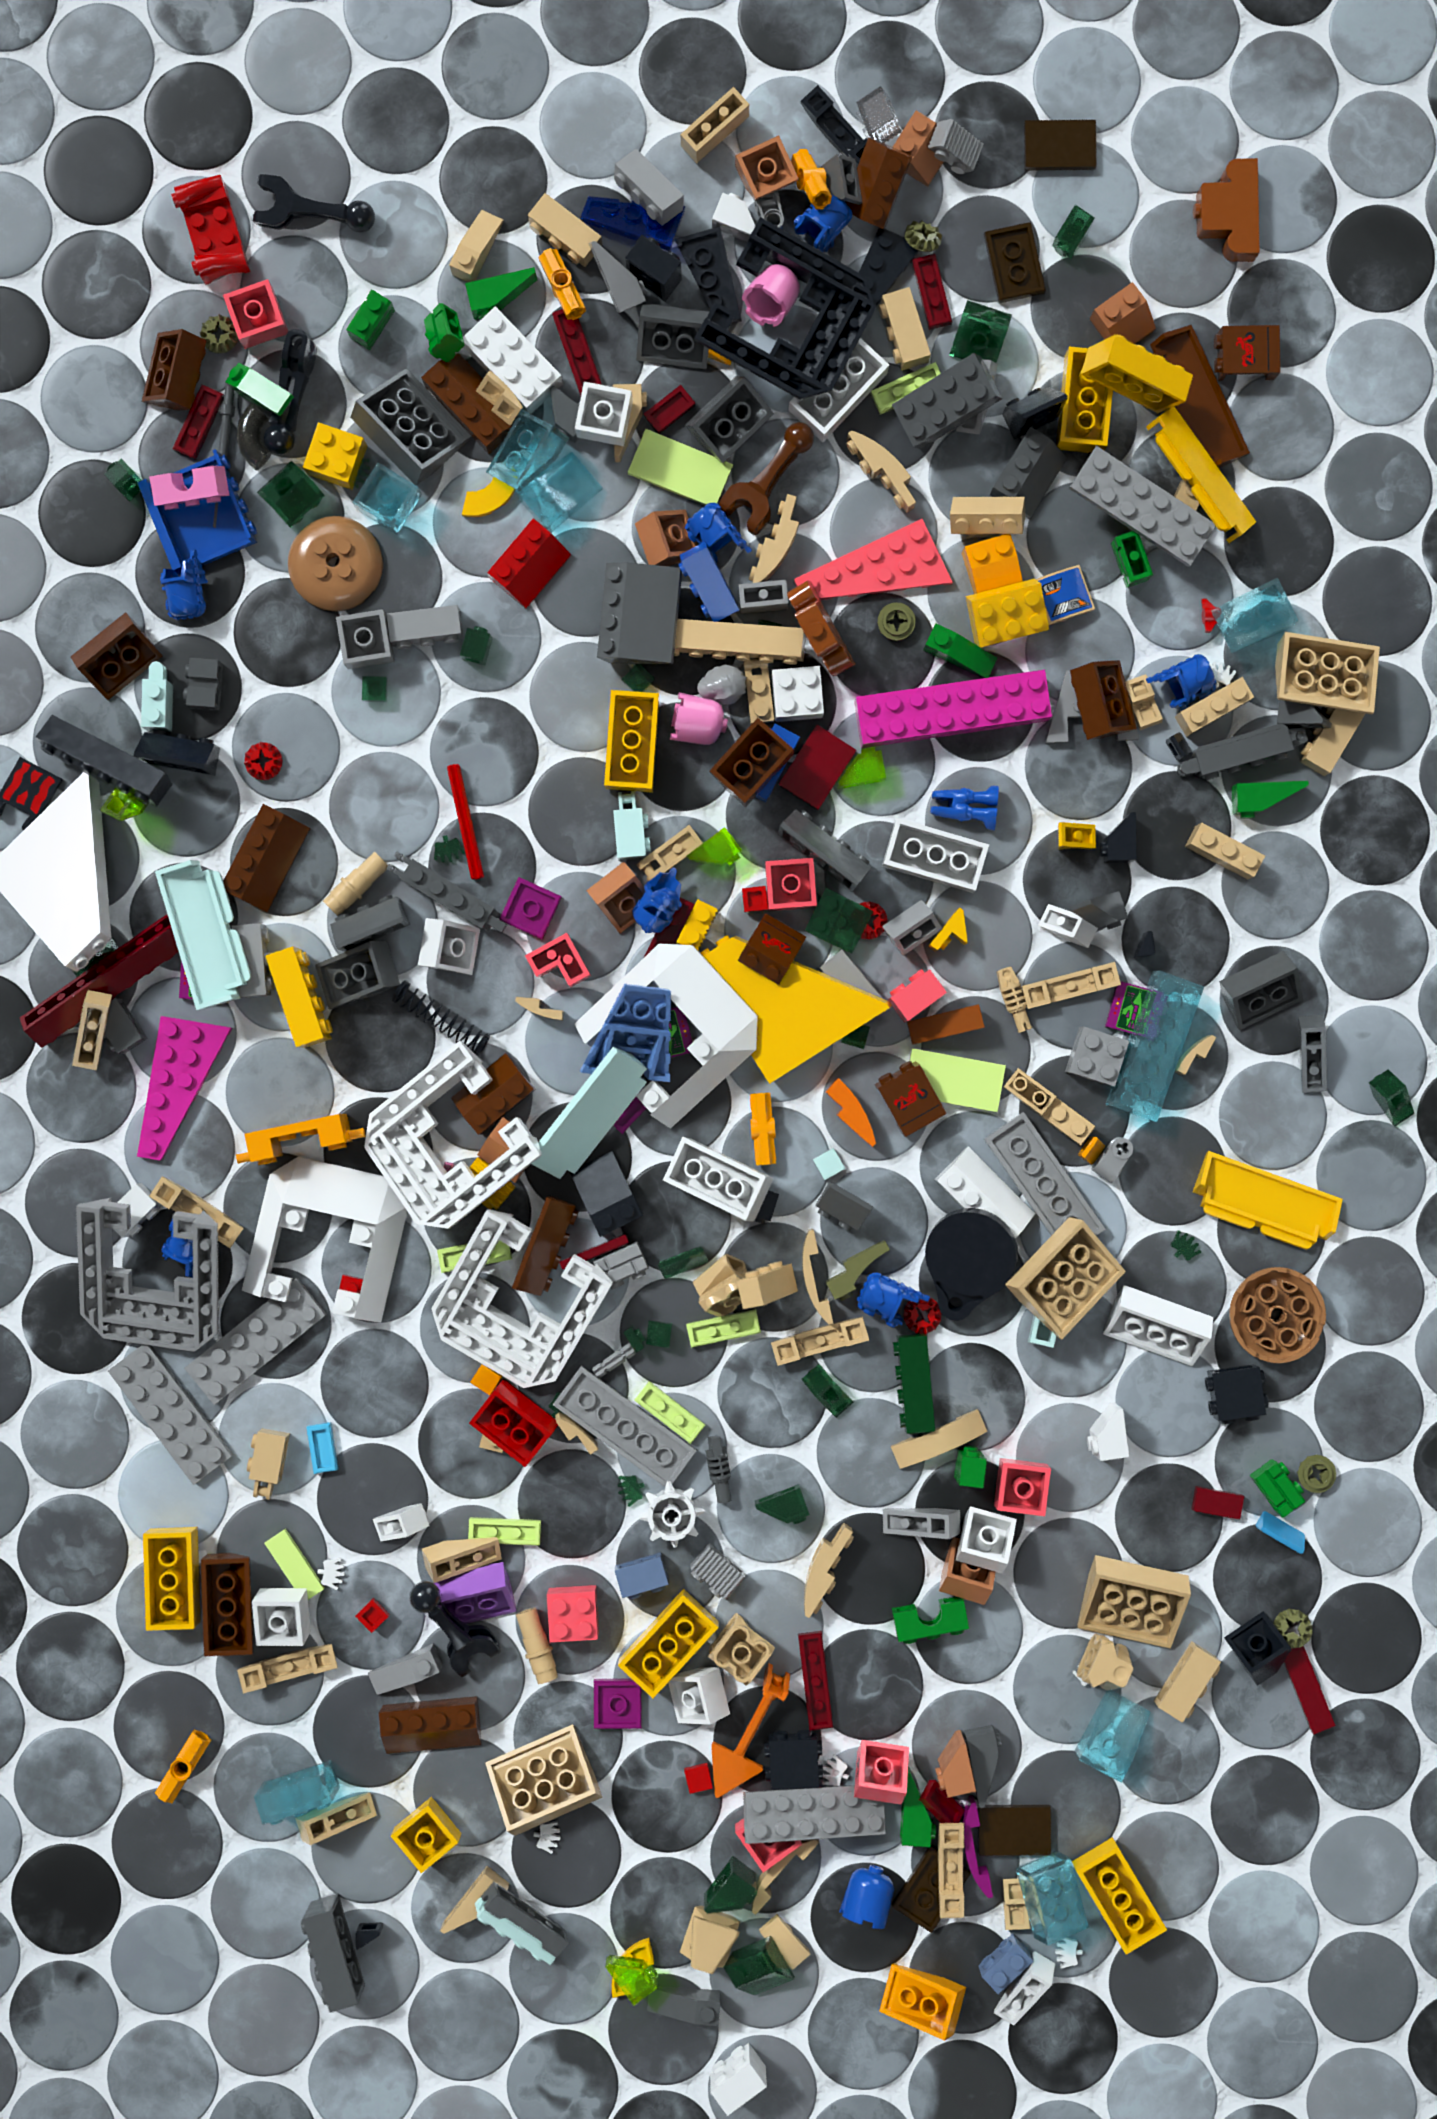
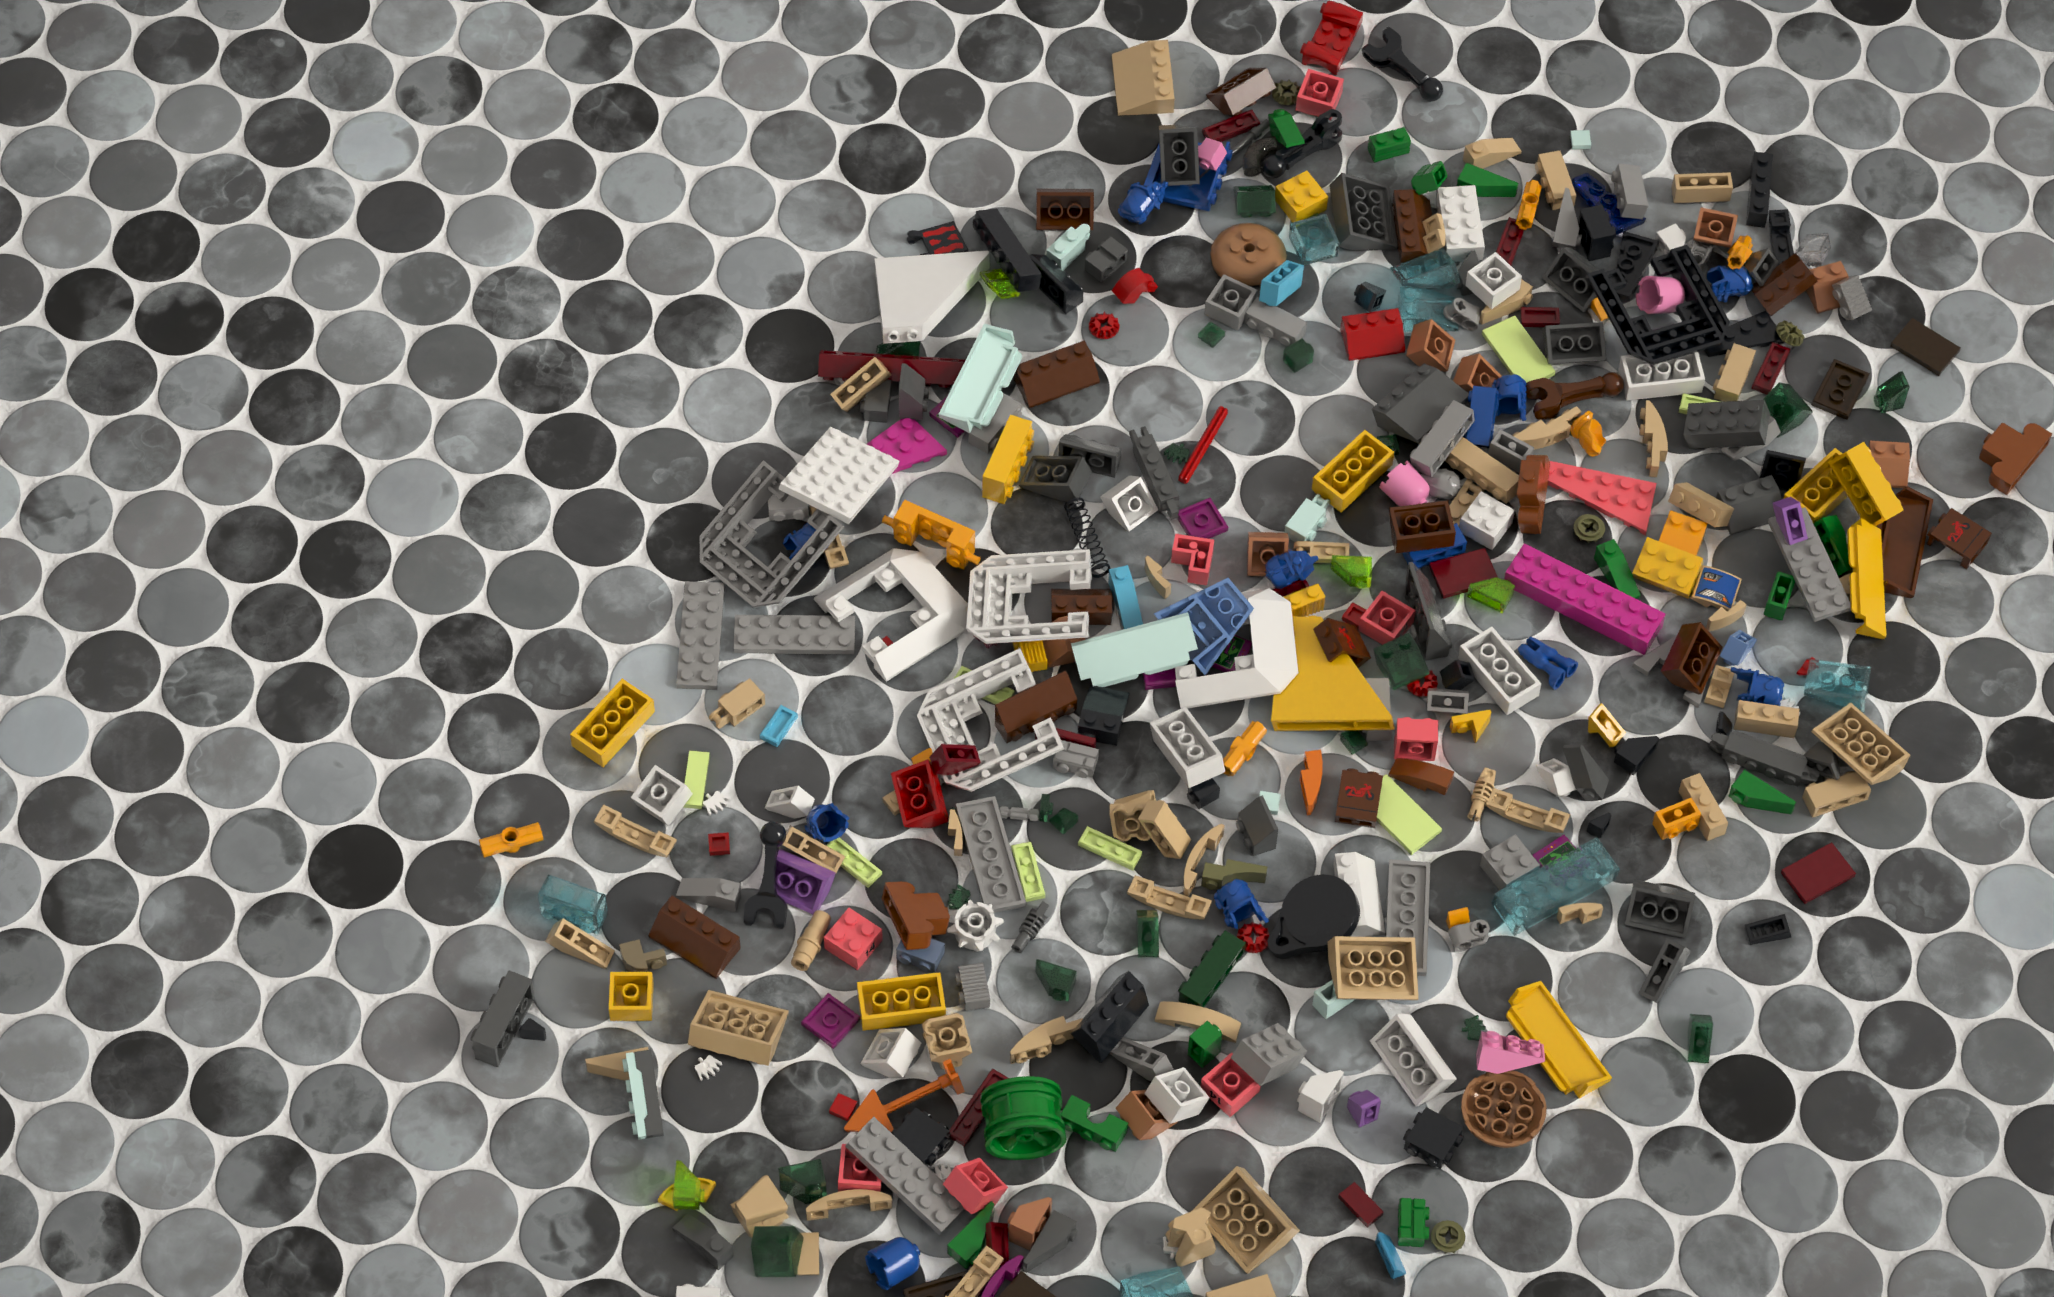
camera: 45 degrees right, 30 degrees down
(66, 434) = (1144, 79): none -> tan slope
(123, 479) = (1154, 120): clear green slope -> none
(148, 998) = (912, 394): none -> dark grey slope
(159, 1158) = (839, 475): none -> white plate
(180, 512) = (1179, 154): none -> dark grey slope
(226, 1604) = (632, 761): reddish brown slope -> none
(256, 695) = (1132, 285): none -> red brick
(355, 884) = (1101, 427): tan piece -> none
(398, 1792) = (637, 961): none -> dark tan brick
(399, 581) = (1281, 283): none -> medium azure brick
(450, 1520) = (826, 822): none -> blue helmet
(487, 500) = (1390, 284): yellow tile -> none
(492, 524) = (1369, 296): none -> black slope
(518, 1366) = (953, 758): none -> dark red slope
(530, 1055) = (1125, 596): none -> medium azure slope
(549, 157) = (1580, 139): none -> light aqua tile
(593, 532) = (1430, 345): none -> nougat slope
(597, 469) = (1464, 314): none -> light grey piece
(612, 1552) = (915, 915): none -> dark orange brick
(683, 1262) = (1116, 786): clear green slope -> none
(694, 643) = (1442, 438): none -> light grey brick
(770, 80) = (1759, 189): none -> black brick
(818, 513) = (1589, 433): none -> light orange hair
(865, 1509) = (1112, 1016): none -> black slope
(877, 1685) = (1023, 1118): none -> green wheel
(900, 892) = (1457, 675): none -> black brick
(1037, 1436) = (1269, 1054): none -> light grey brick
(1049, 1107) = (1450, 872): tan slope -> none
(1093, 625) = (1722, 618): none -> tan slope
(1098, 477) = (1790, 520): none -> medium lavender slope
(1131, 646) = (1737, 648): none -> medium blue slope
(1139, 455) = (1834, 541): none -> green slope
(1153, 1412) = (1364, 1107): none -> medium lavender slope
(1212, 886) = (1676, 819): none -> light orange brick
(1245, 1260) = (1508, 1053): none -> bright pink slope
(1364, 927) = (1776, 935): none -> black slope
(1372, 834) = (1818, 873): none -> dark red tile

